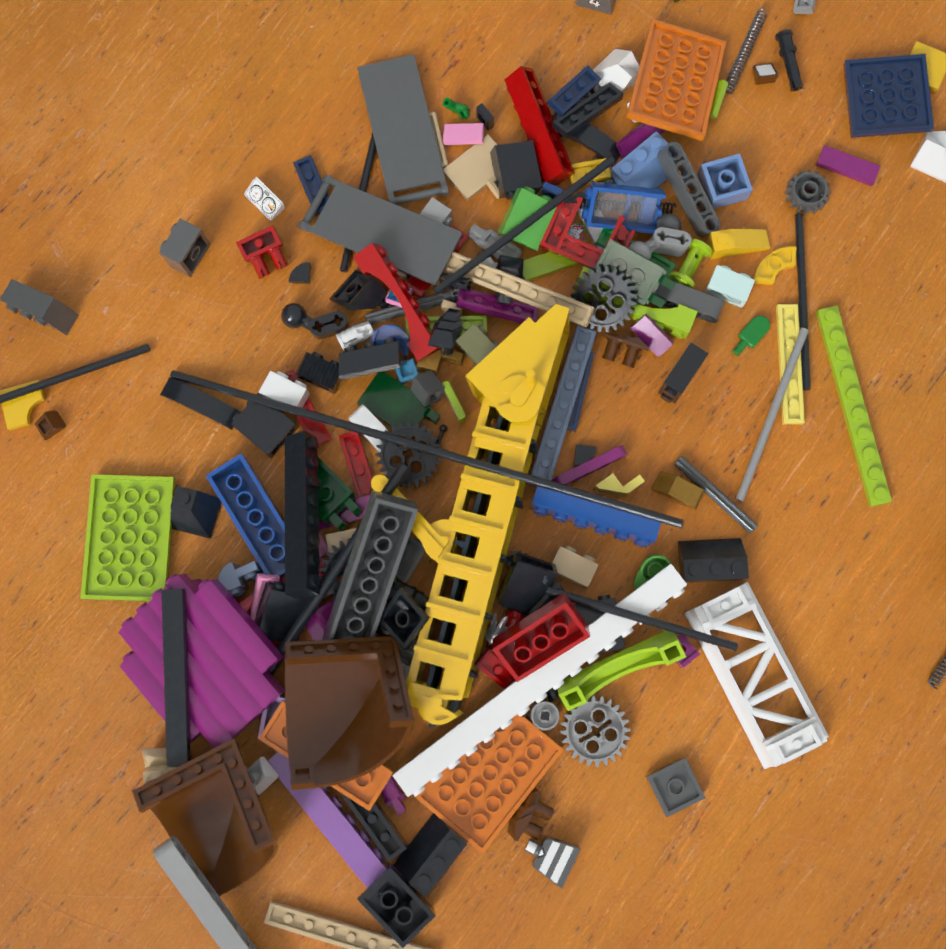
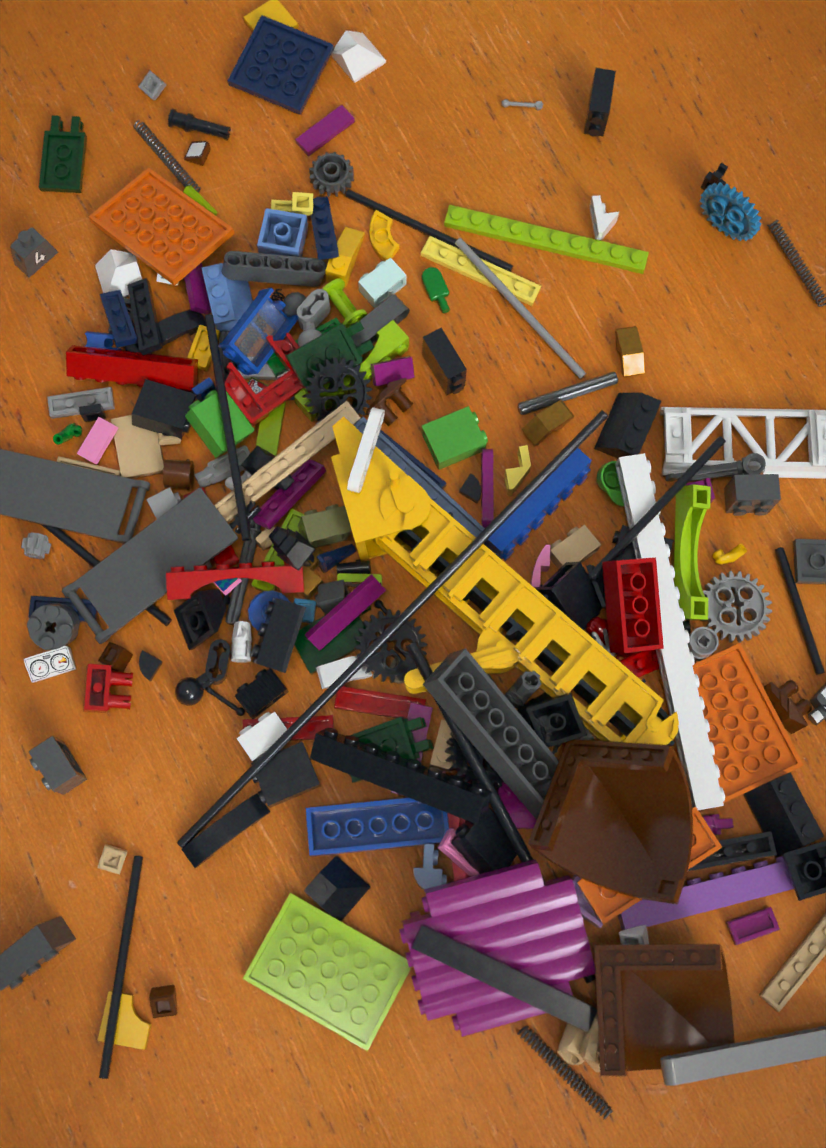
camera: 70 degrees left, 5 degrees down
(136, 328) = (112, 859): none -> tan tile
(138, 764) = (565, 1070): none -> dark grey piece
(292, 184) = (41, 624): none -> dark grey brick
(294, 245) = (116, 657): none -> reddish brown slope
(304, 333) = (239, 711): none -> black hinge
(325, 869) = (752, 925): none -> magenta tile
(351, 135) = (36, 545): none -> light grey gear
(417, 403) = (345, 612): none -> magenta tile
(420, 578) = (523, 688): none -> dark grey piece
(457, 368) = (331, 558): none -> dark blue tile
(464, 395) = (357, 567): none -> black pin
(468, 211) = (178, 474): none -> reddish brown piece
(482, 93) = (69, 403): none -> light grey tile
(546, 341) = (365, 450): none -> white beam
(547, 545) = (542, 564): none -> bright pink slope
(548, 87) = (100, 340): none -> blue piece
(620, 417) = (454, 437): none -> bright green brick
(620, 792) = (799, 610): none -> black piece
(639, 707) = (729, 557): none -> yellow arm
(704, 699) = (752, 494): none -> dark grey brick
(722, 675) = (726, 469): none -> dark grey piece
(750, 210) = (324, 229): none -> dark blue plate
(760, 179) = (301, 203): none -> light yellow slope
(785, 529) = (631, 350): none -> pearl gold slope
(898, 446) = (601, 221): none -> white slope

